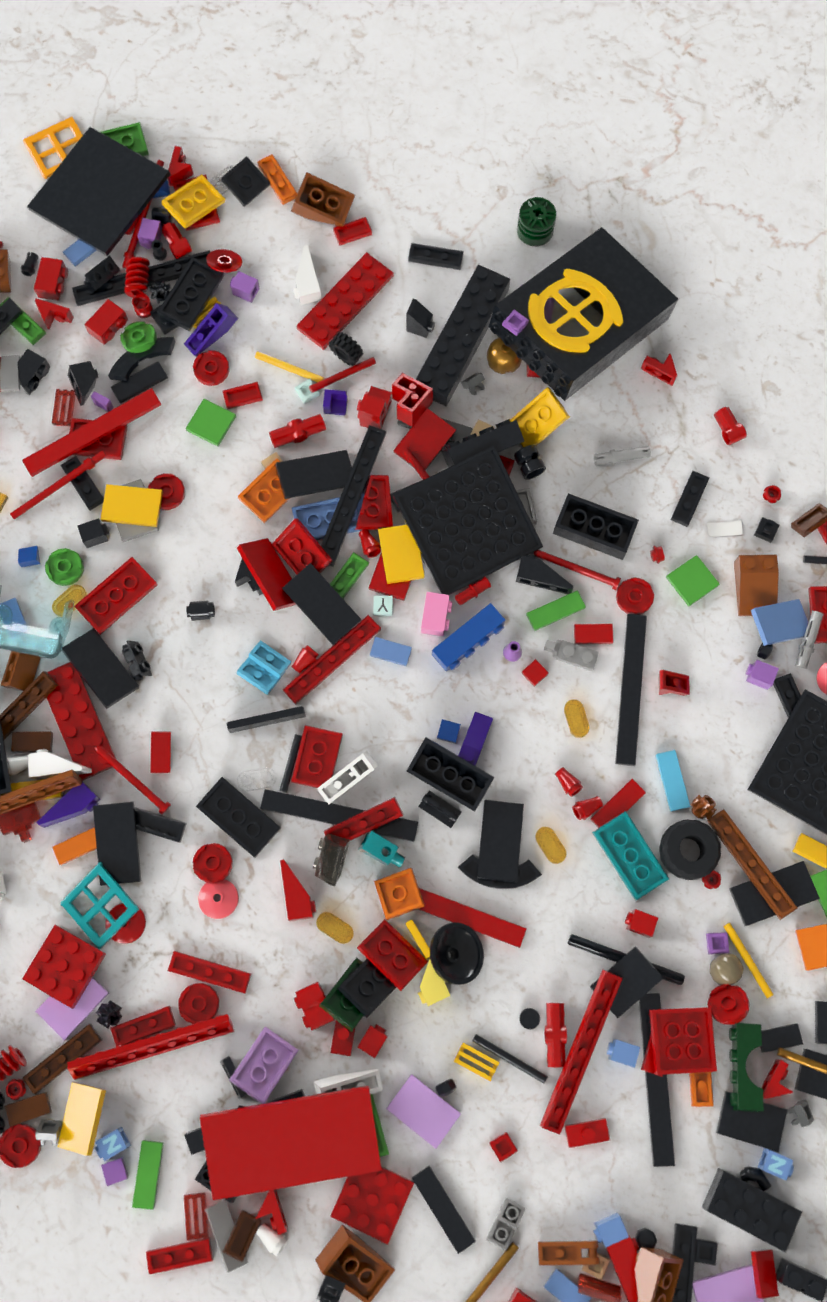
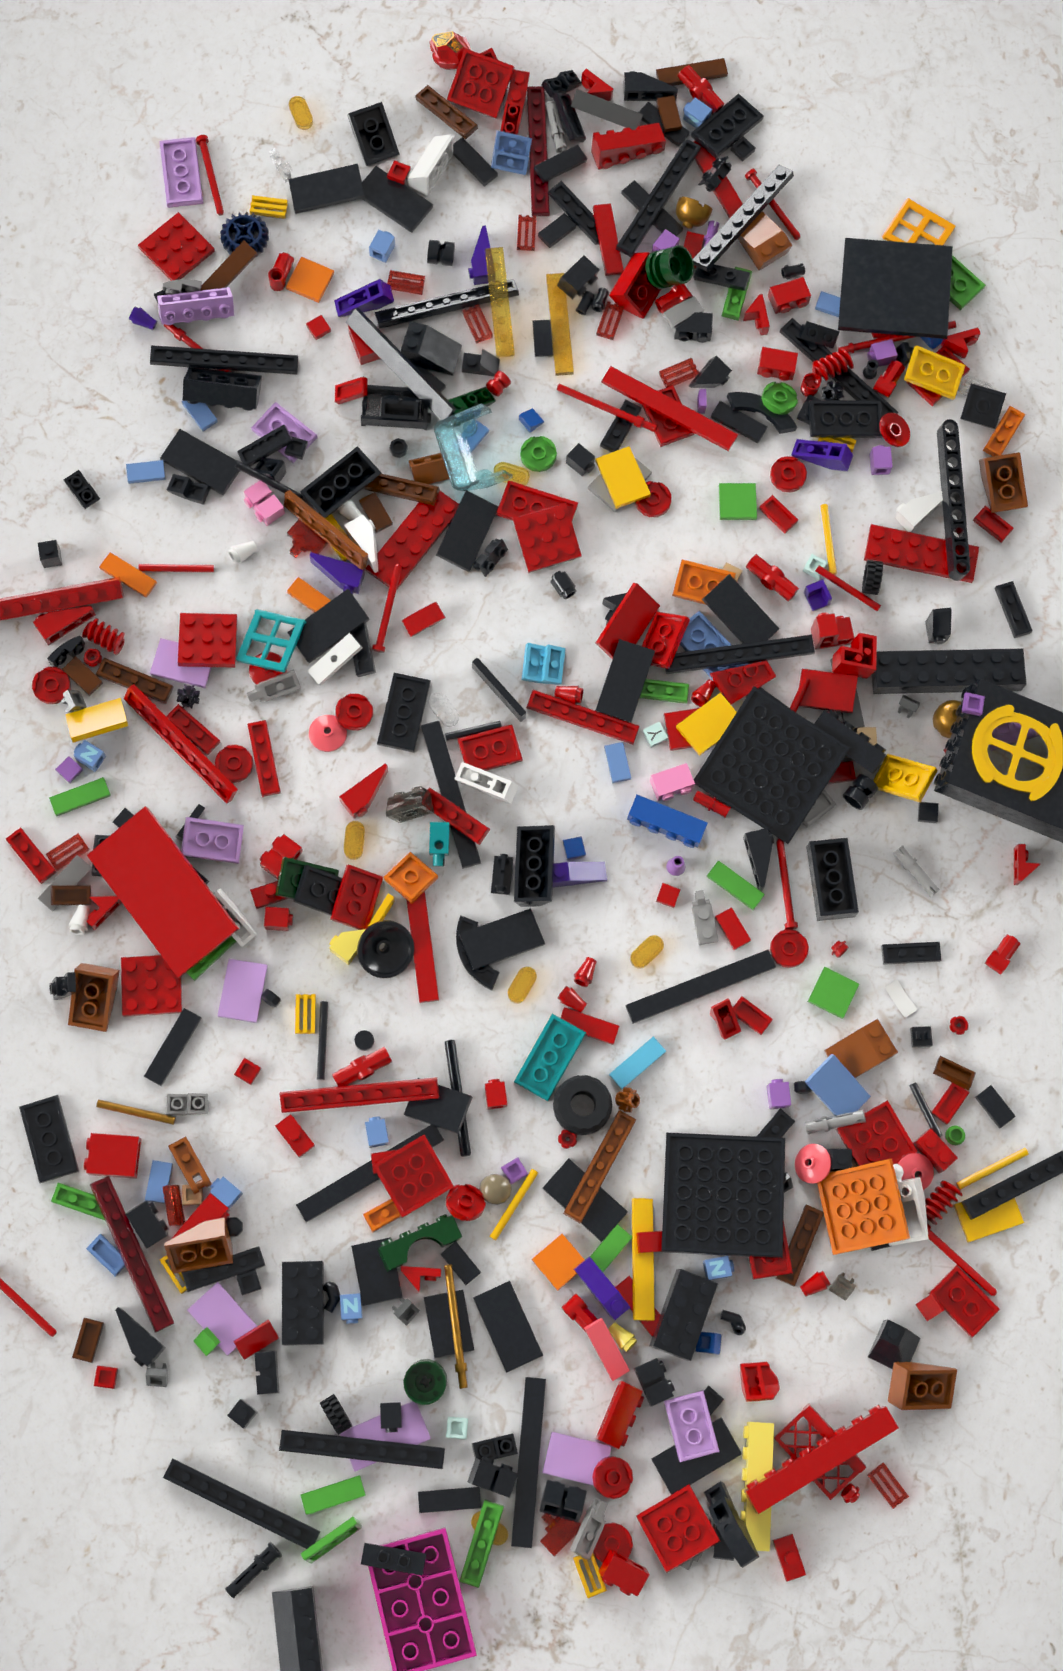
camera: 55 degrees right, 0 degrees up
(147, 925) = (275, 687): none -> light grey hinge
(149, 600) = (547, 537): none -> red plate
(154, 866) = (327, 667): none -> white tile
(316, 246) = (949, 507): none -> black beam
(576, 418) = (928, 812): none -> black tile
(679, 659) = (751, 1015): none -> red tile

